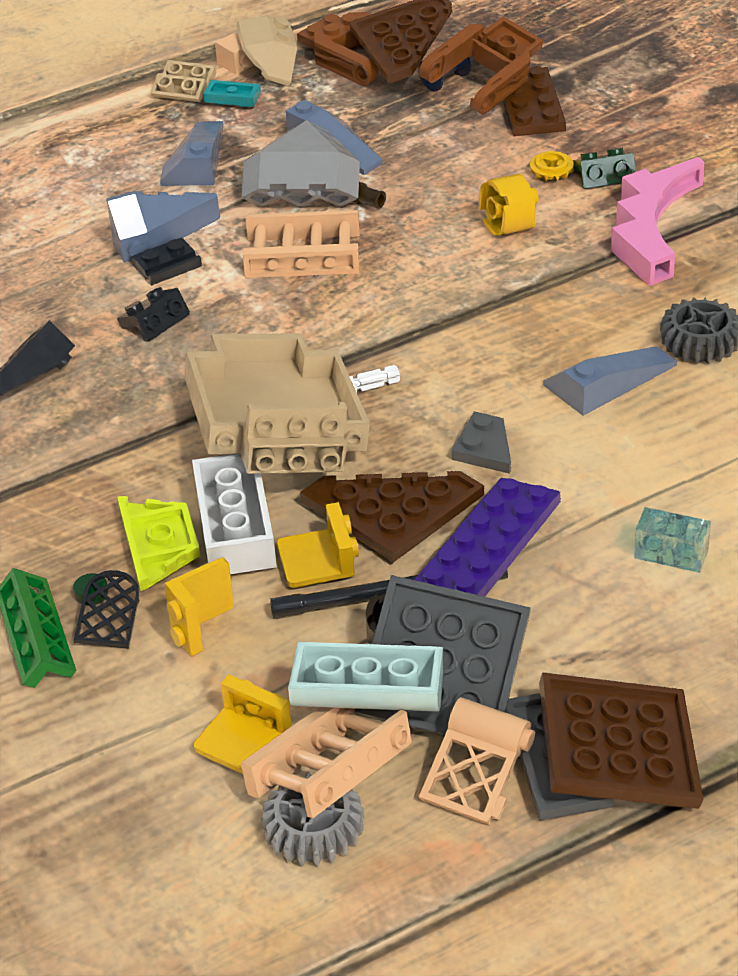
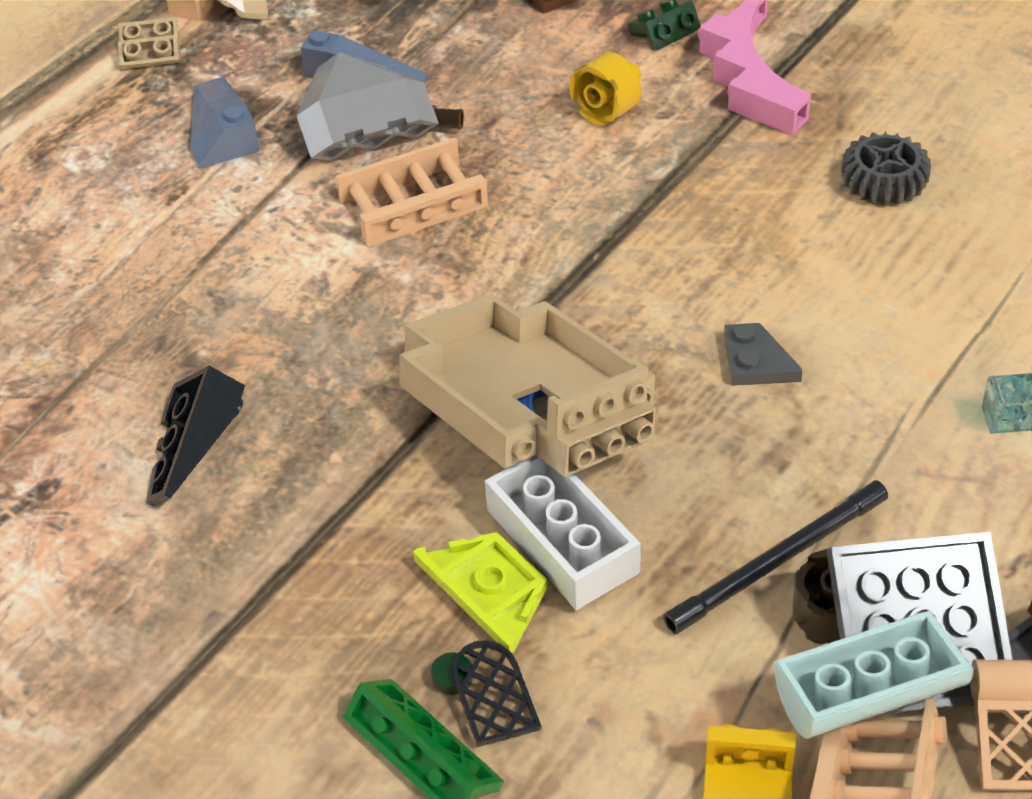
camera: 25 degrees left, 5 degrees up
(150, 220) = (229, 215): sand blue wedge -> none
(155, 313) = (300, 317): black bracket -> none
(166, 261) = (269, 253): black plate -> none
(195, 599) = (597, 663): yellow bracket -> none
(232, 93) = (214, 43): teal plate -> none
(320, 554) = (684, 537): yellow bracket -> none
(376, 378) = (596, 318): white axle -> none
(395, 512) = (716, 465): reddish brown plate -> none
(491, 537) = (849, 467): dark purple plate -> none
(551, 165) = (598, 34): yellow gear -> none
(607, 377) = (824, 248): sand blue wedge -> none

